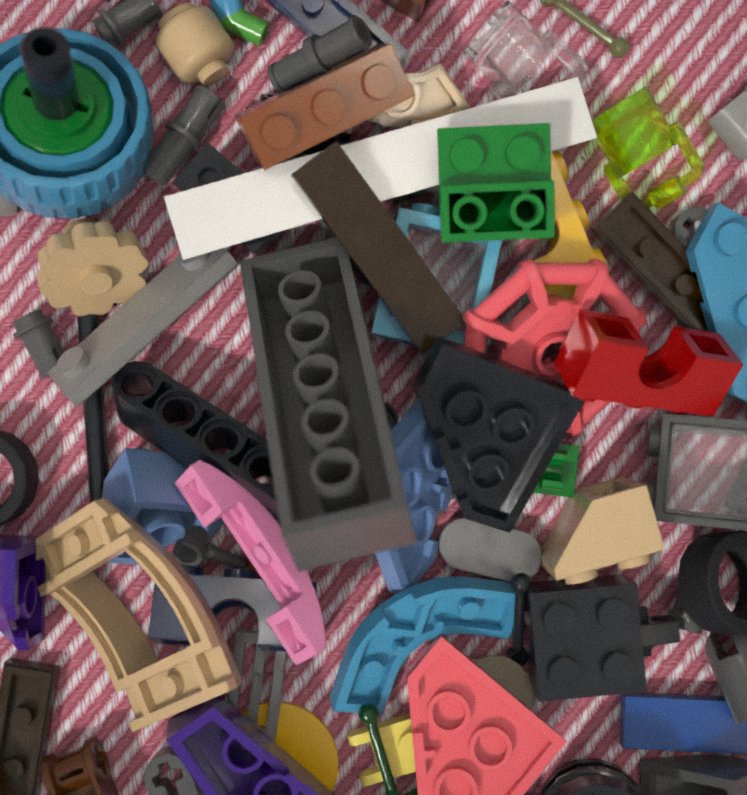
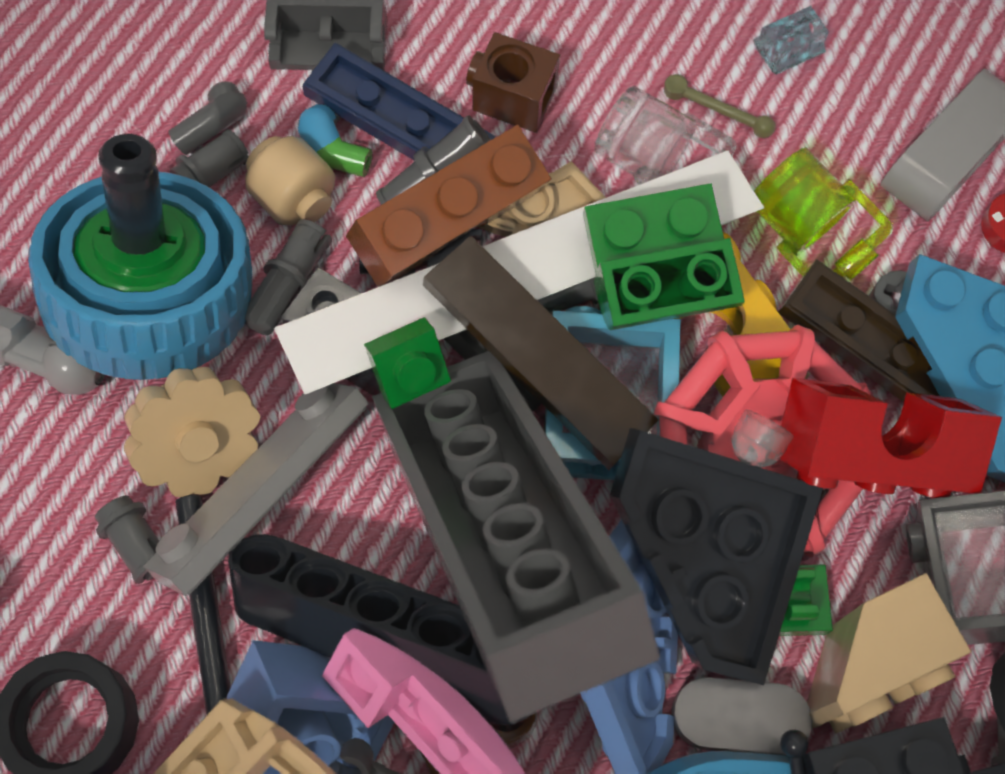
camera: 10 degrees left, 20 degrees down
(269, 244) = (407, 362): none -> green plate
(542, 354) = (759, 440): none -> clear hinge

